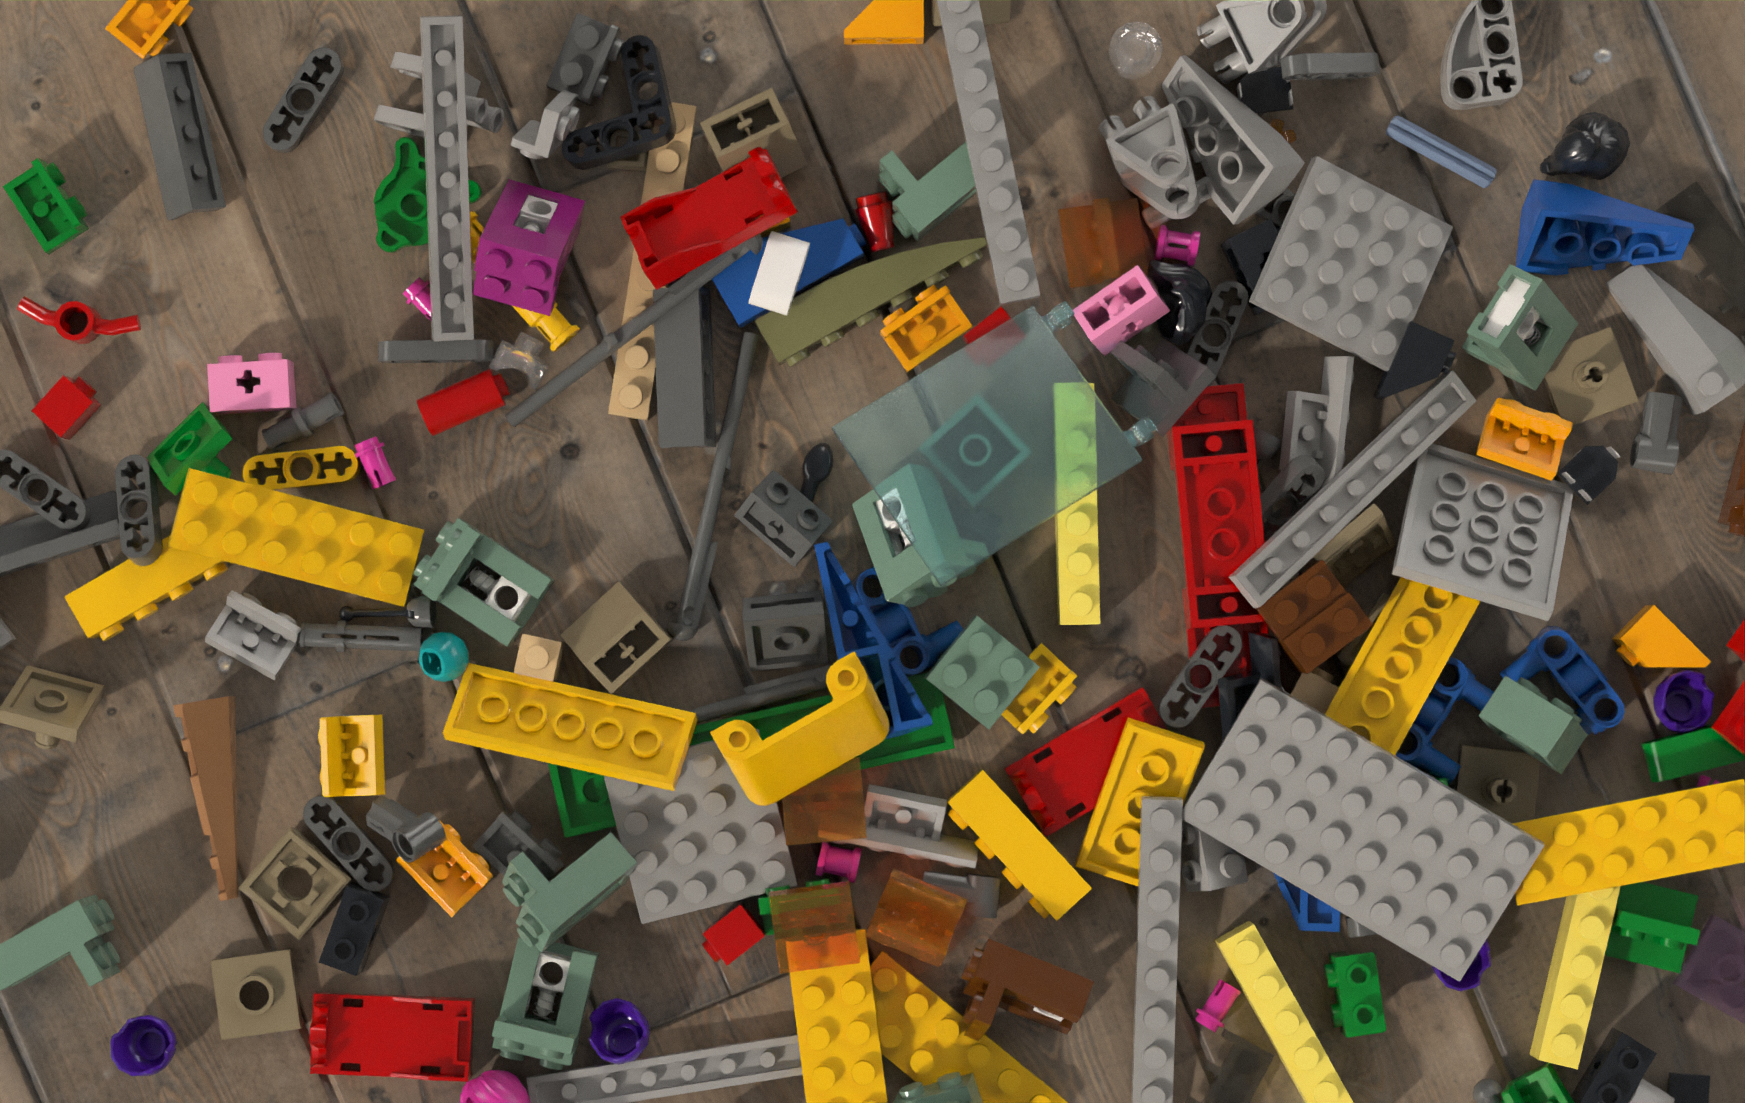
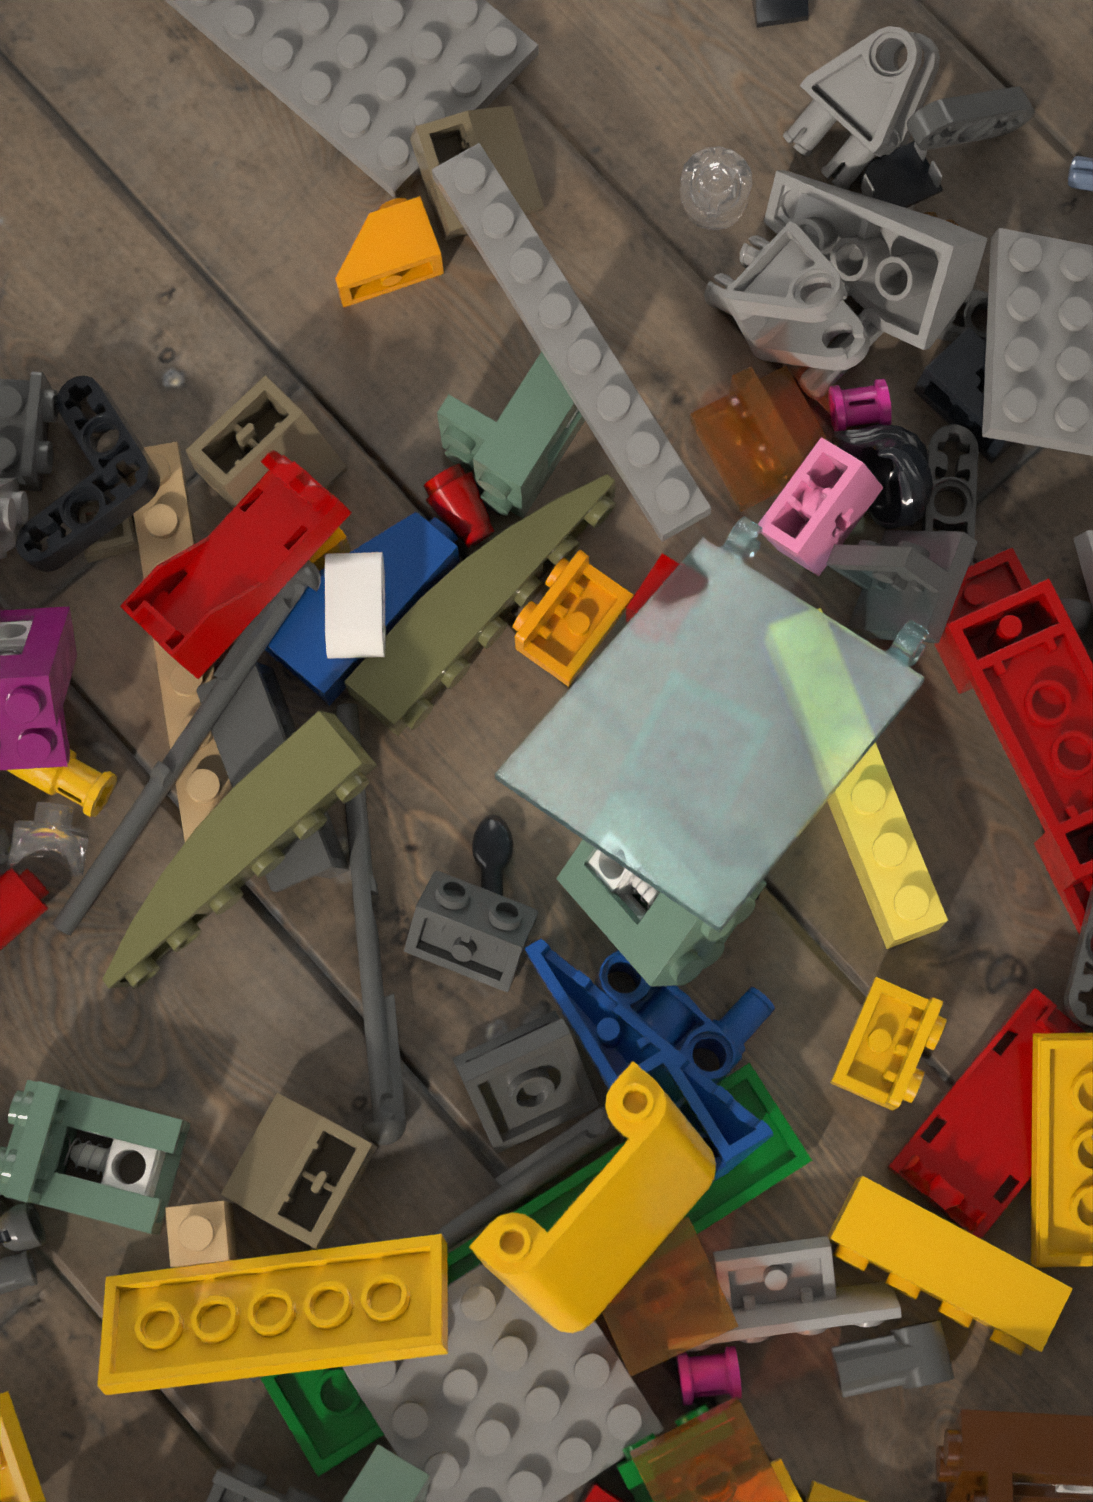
camera: 15 degrees left, 10 degrees down
(443, 656) = (68, 1279): teal piece -> none
(652, 407) = (243, 838): none -> olive slope
(915, 918) = (846, 1418): clear orange bracket -> none
(982, 672) = (813, 1040): sand green brick -> none

